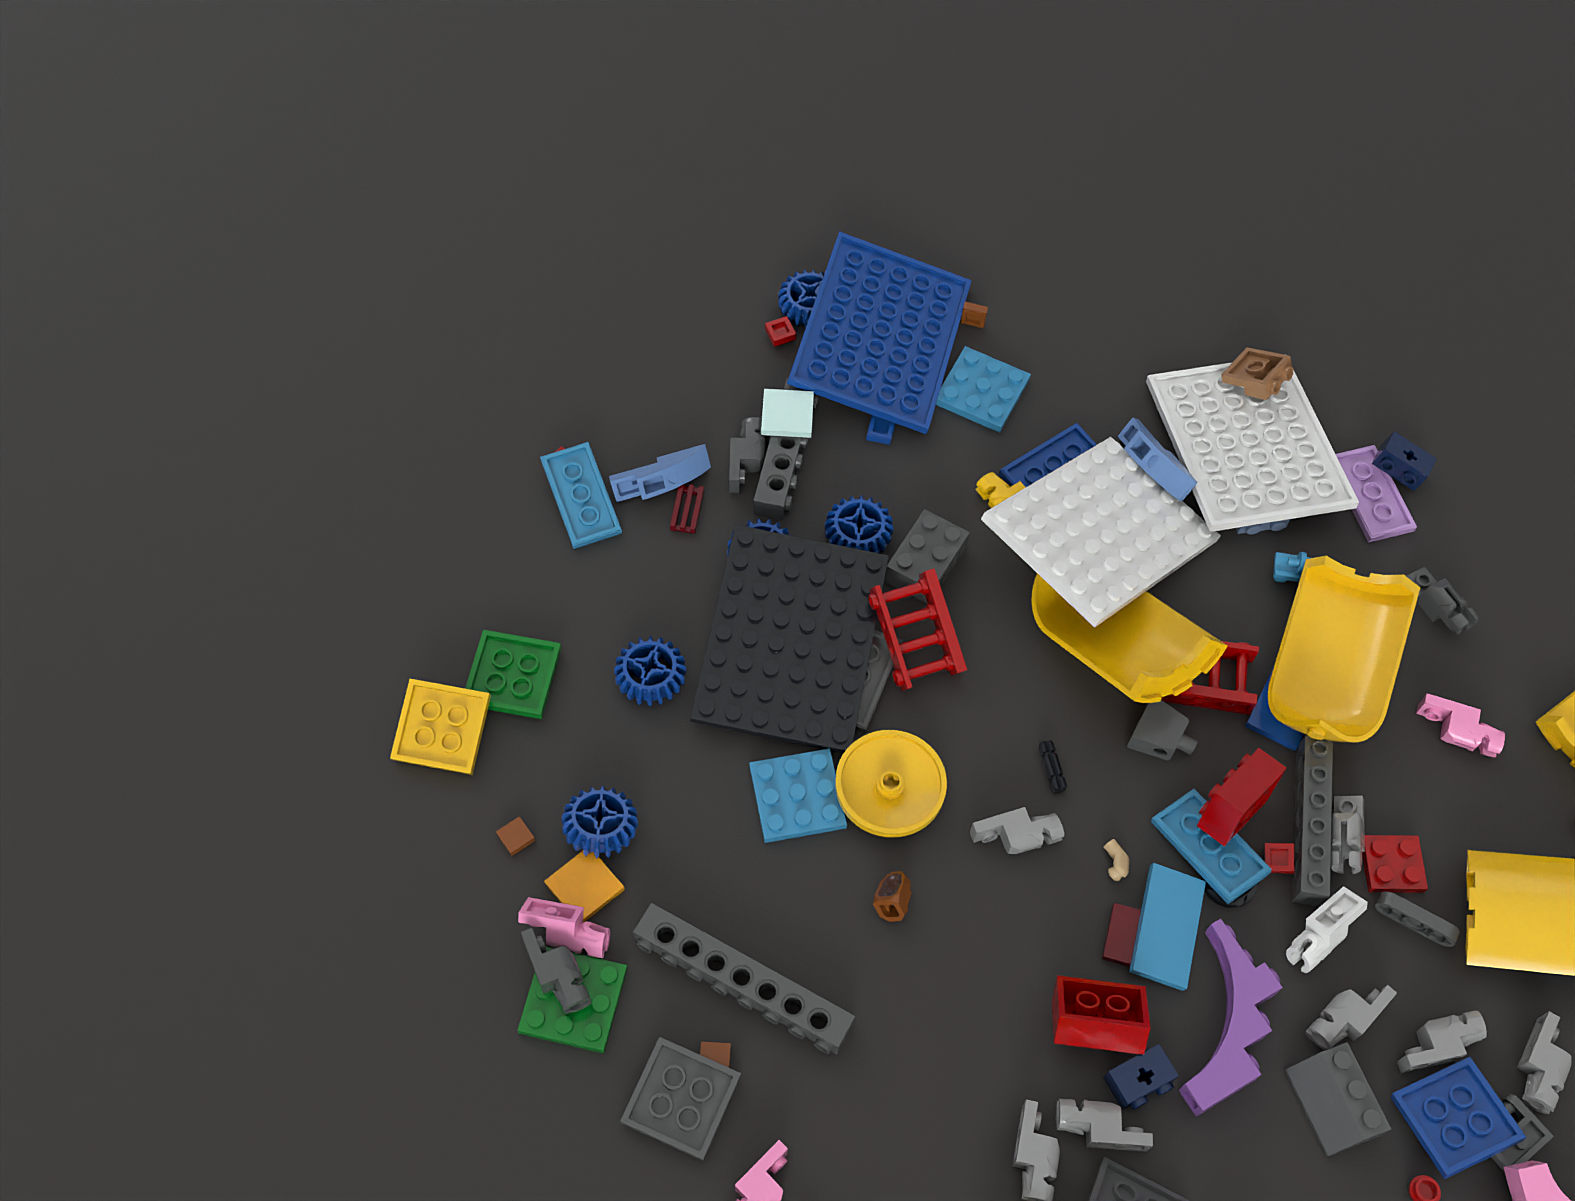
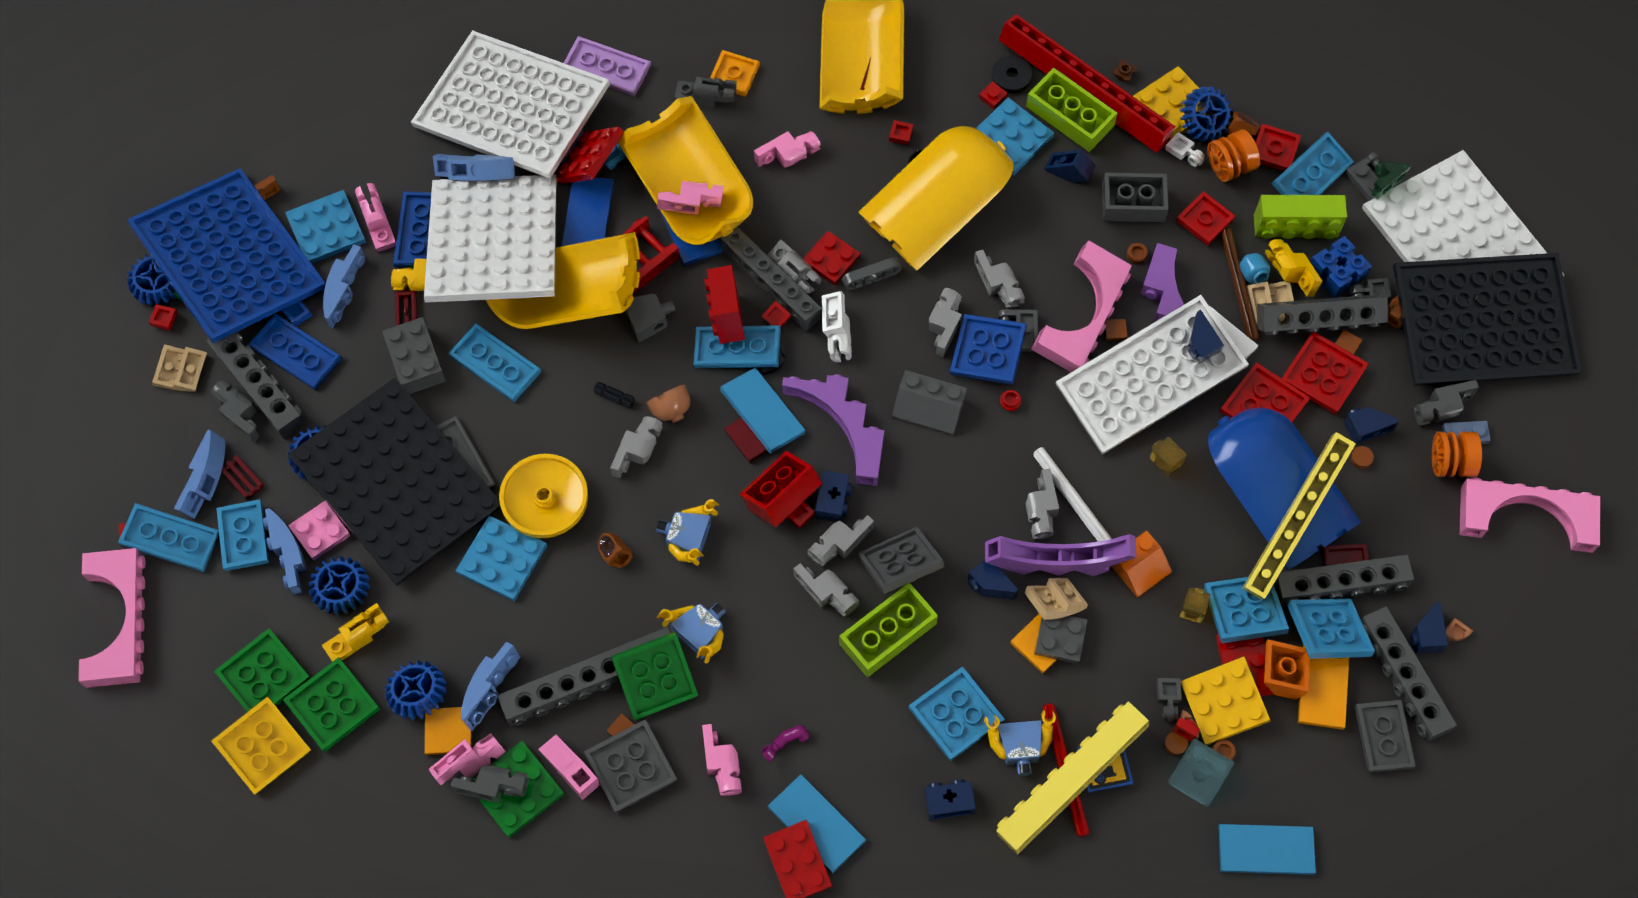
camera: 50 degrees left, 5 degrees up
(438, 546) = (122, 659): none -> bright pink arch
(515, 836) = (378, 751): dark orange tile -> none
(529, 757) = (331, 704): none -> green plate
(614, 723) = (356, 633): none -> yellow plate
(632, 552) = (242, 535): none -> dark azure plate
(633, 1035) = (570, 767): none -> bright pink slope
(645, 883) = (482, 691): none -> medium blue slope
(651, 596) = (287, 550): none -> medium blue slope
(689, 612) = (319, 530): none -> bright pink plate
(744, 380) = (179, 368): none -> tan slope
(787, 413) = (234, 360): light aqua tile -> none
(792, 1045) = (654, 675): none -> green plate
(843, 457) = (295, 351): none -> blue tile
(874, 525) = (359, 370): blue gear -> none
(880, 1049) = (697, 628): none -> torso
(930, 443) = (337, 288): none -> medium blue slope
(936, 611) = (476, 387): red fence -> none
(964, 505) = (405, 294): none -> dark red tile
(973, 956) = (688, 531): none -> torso
(986, 632) = (494, 362): none -> dark azure tile
(1028, 420) = (376, 219): none -> bright pink plate
(1090, 828) = (670, 404): none -> nougat cylinder
(1092, 1060) = (801, 515): none -> red plate
(1120, 860) = (703, 404): tan arm -> none
(1215, 591) = (588, 210): none -> blue tile
(1259, 372) = (472, 57): medium nougat plate -> none
(1267, 546) = (588, 155): none -> red plate
(1317, 672) = (690, 198): none -> bright pink plate
(1348, 1016) = (892, 357): light grey plate -> none
(1404, 461) = (604, 30): dark blue brick -> none
(1494, 610) = (736, 68): none -> light orange tile

